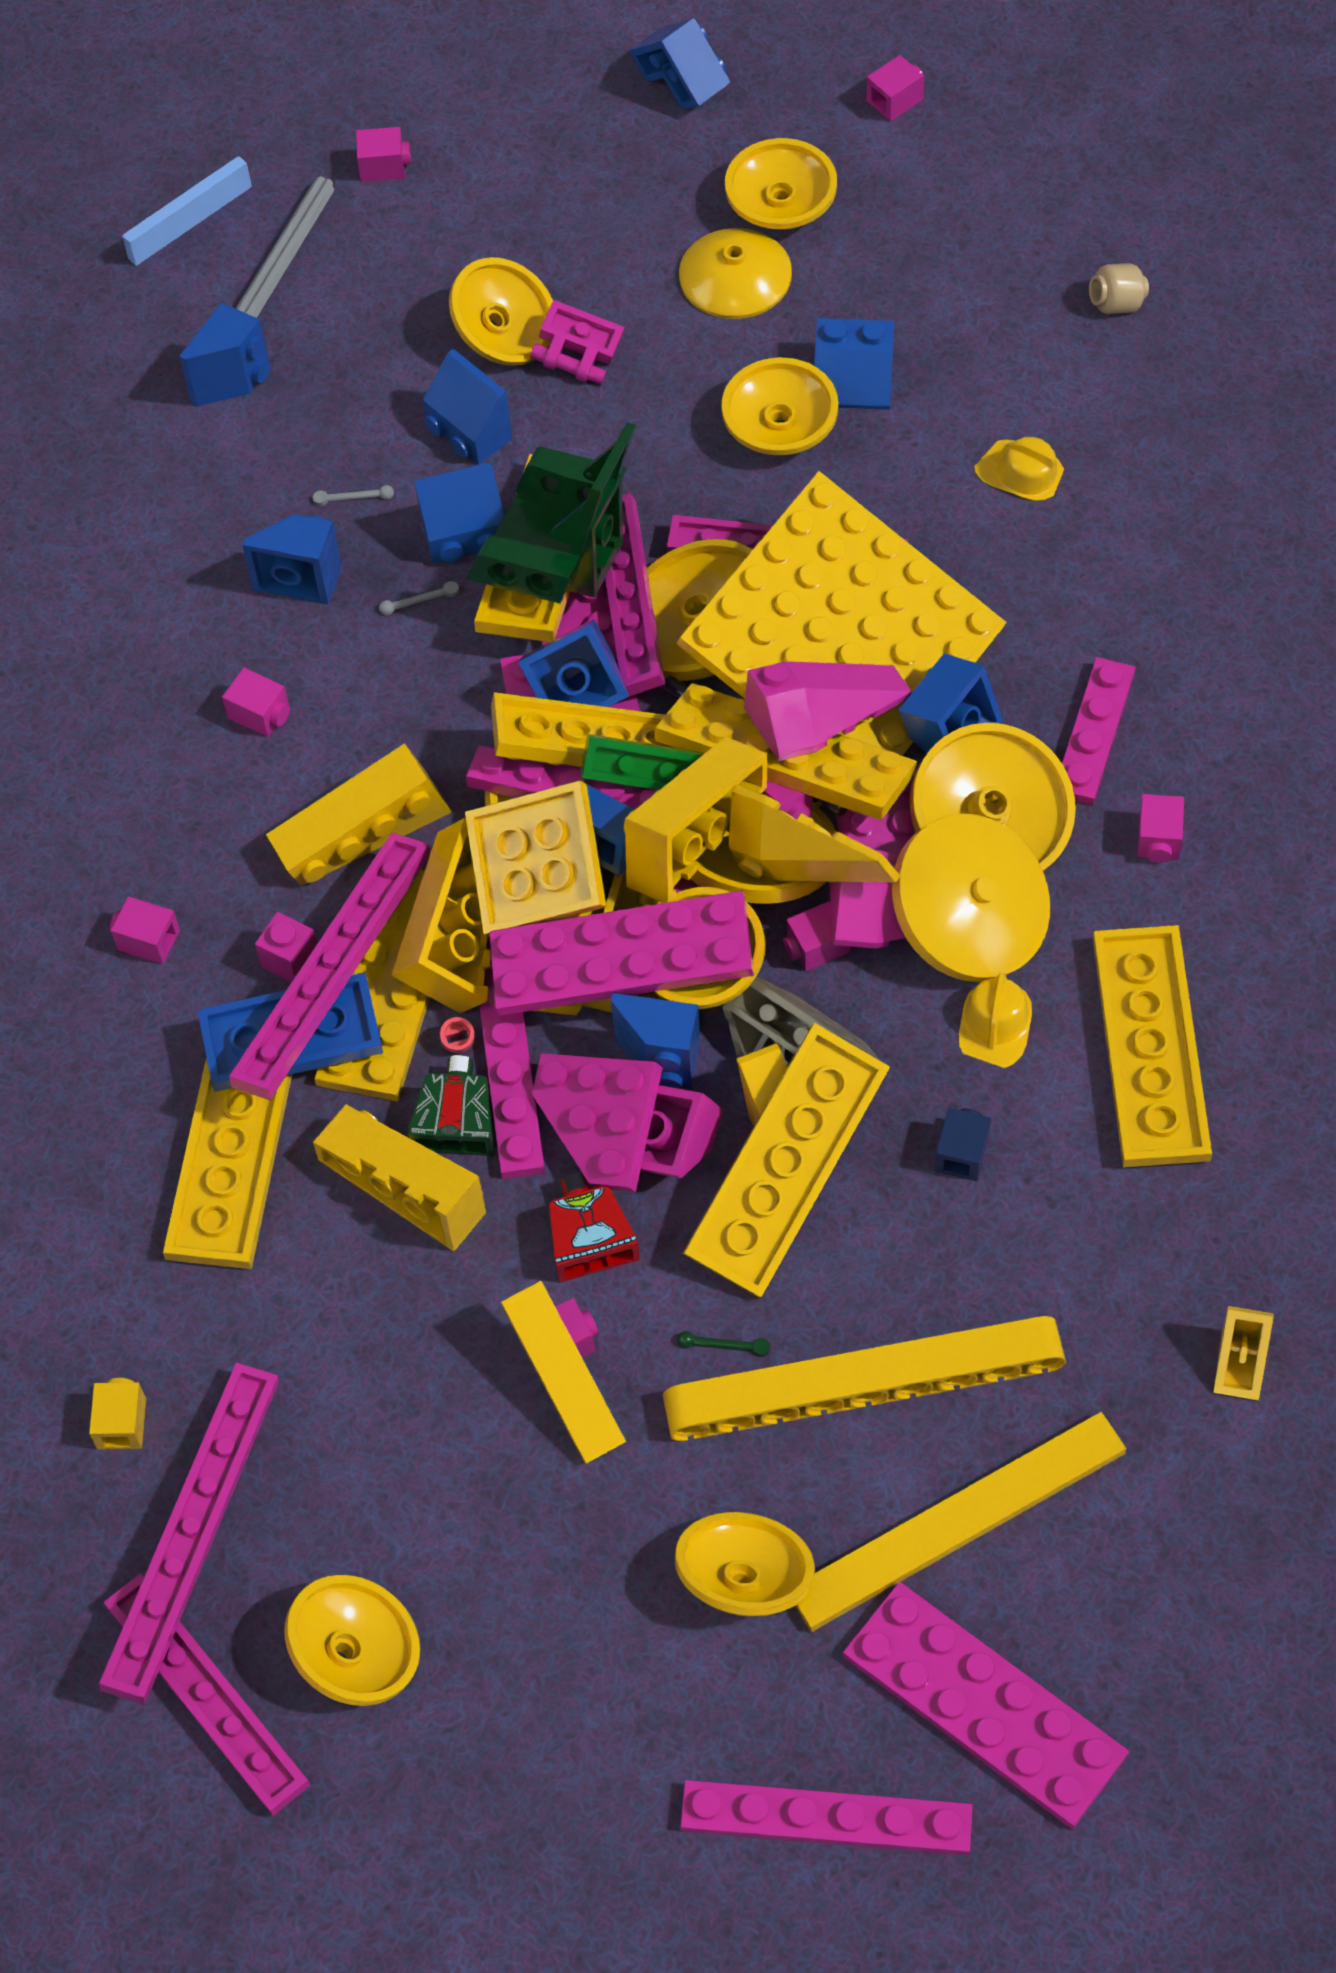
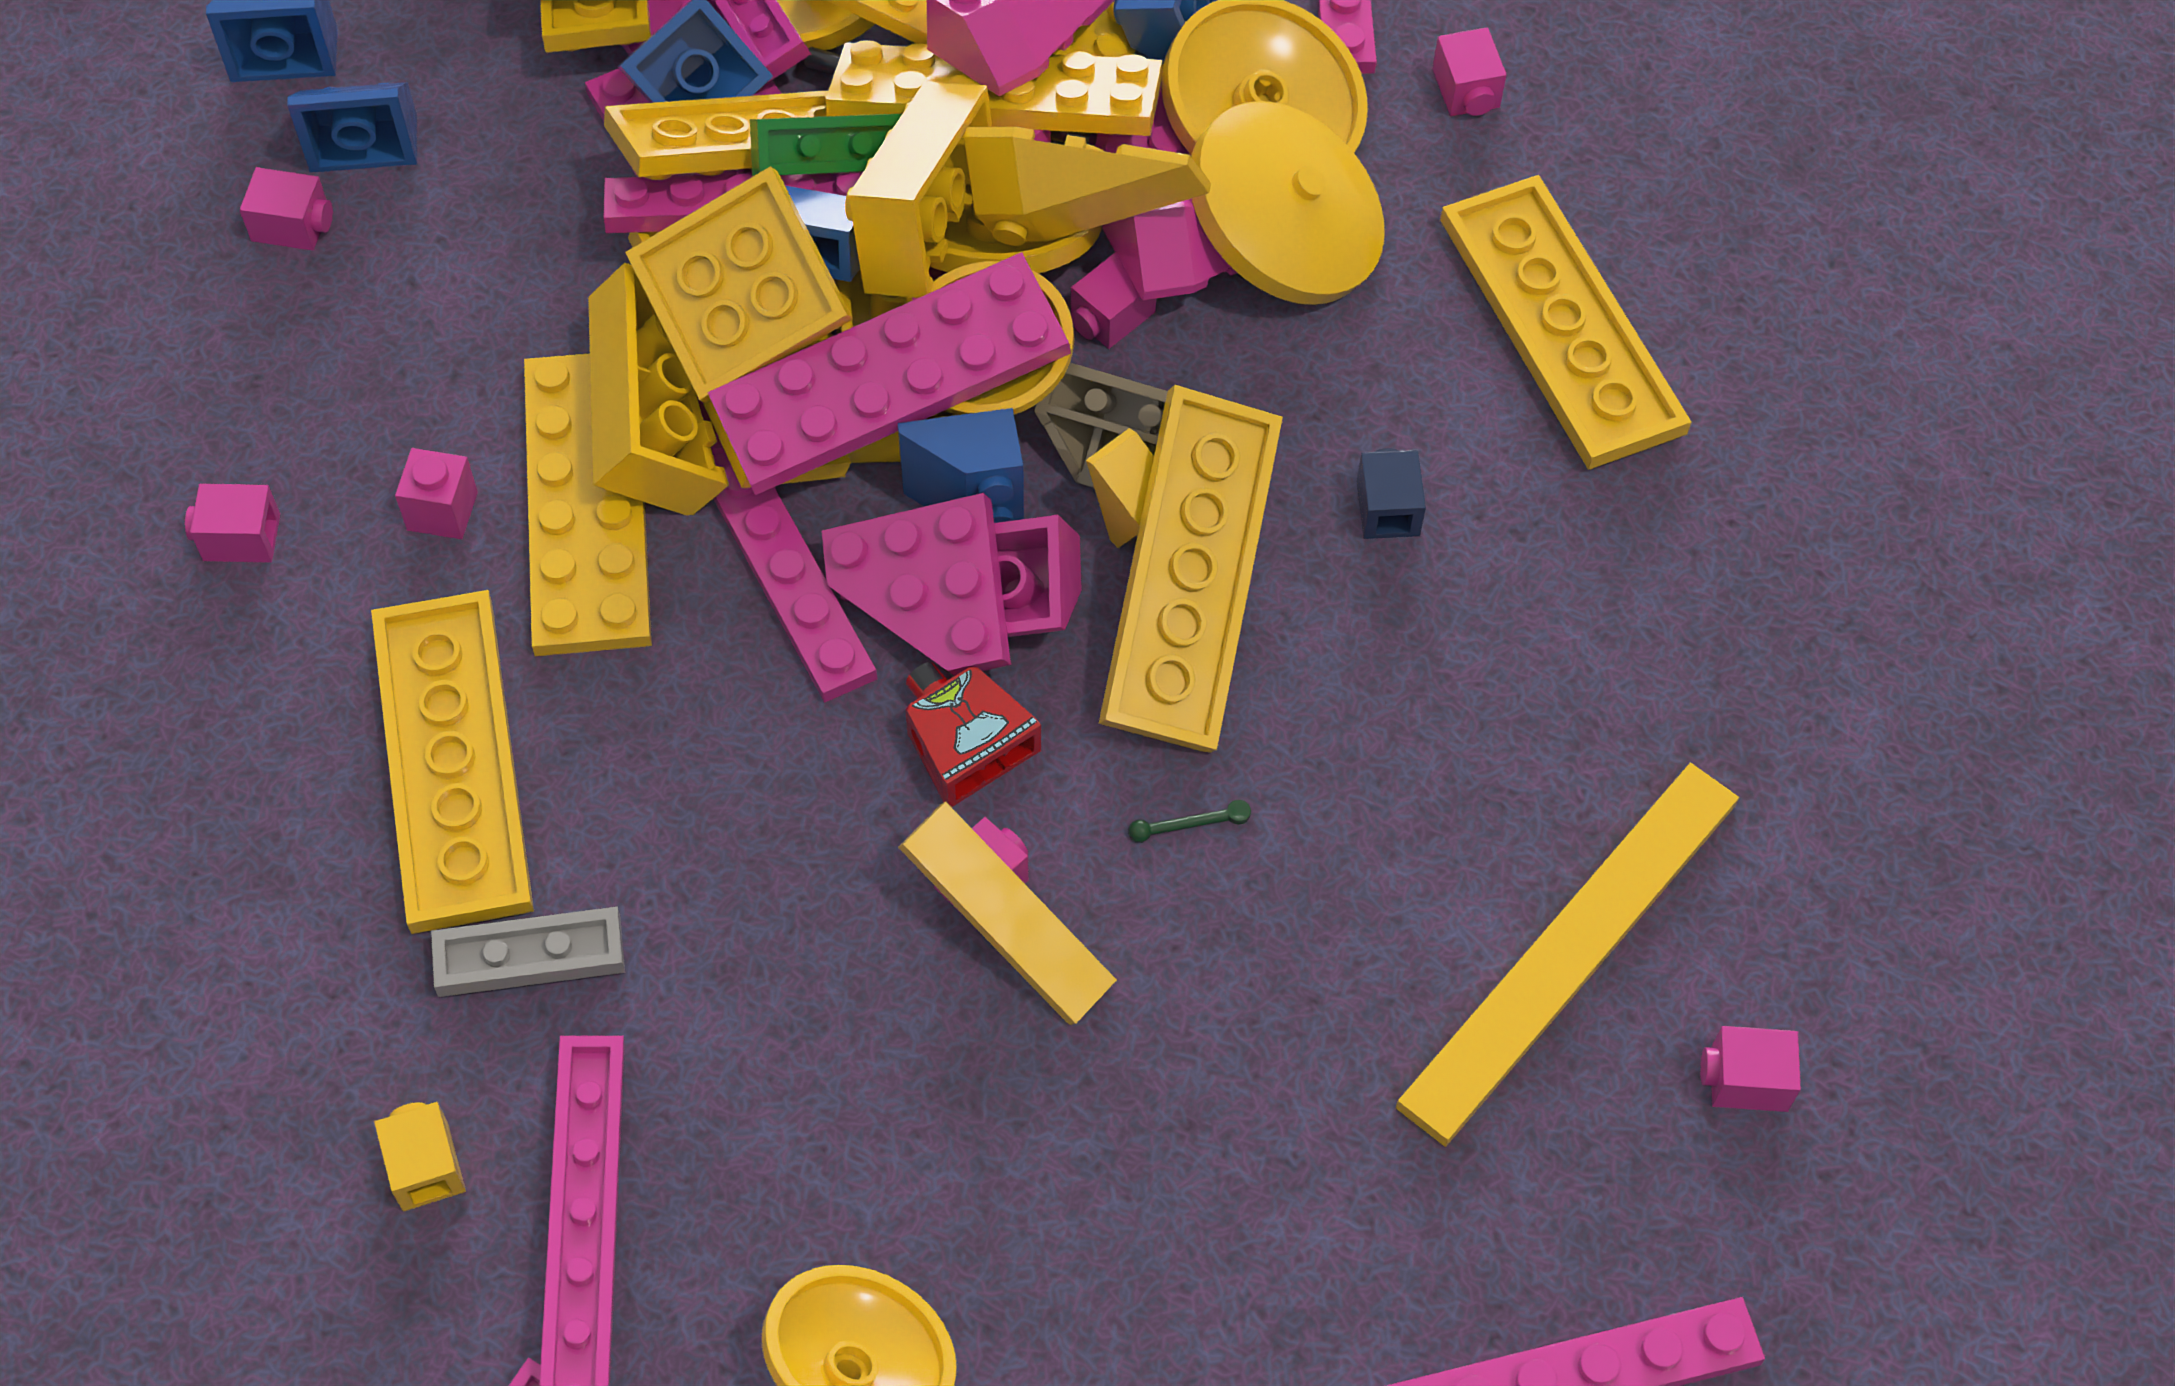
camera: 25 degrees left, 0 degrees up
(237, 1296) = (527, 951): none -> light grey plate
(325, 651) = (355, 126): none -> blue slope
(329, 967) = (508, 498): dark pink plate -> none
(343, 1035) = (480, 593): blue plate -> none
(359, 817) = (475, 308): yellow wedge -> none
(403, 1175) = (698, 730): yellow wedge -> none
(449, 589) = (487, 21): light grey hinge -> none
(454, 1111) = (735, 636): dark green torso -> none
(456, 1027) = (697, 531): coral hinge -> none
(744, 1564) = (1338, 1085): yellow dish -> none
(863, 1376) = (1380, 809): yellow beam -> none
(986, 1705) = (1703, 1166): dark pink plate -> none
(995, 1022) = (1365, 343): yellow piece -> none
(1047, 1647) = (1752, 1068): none -> dark pink brick
(1243, 1352) = (1828, 639): yellow slope -> none

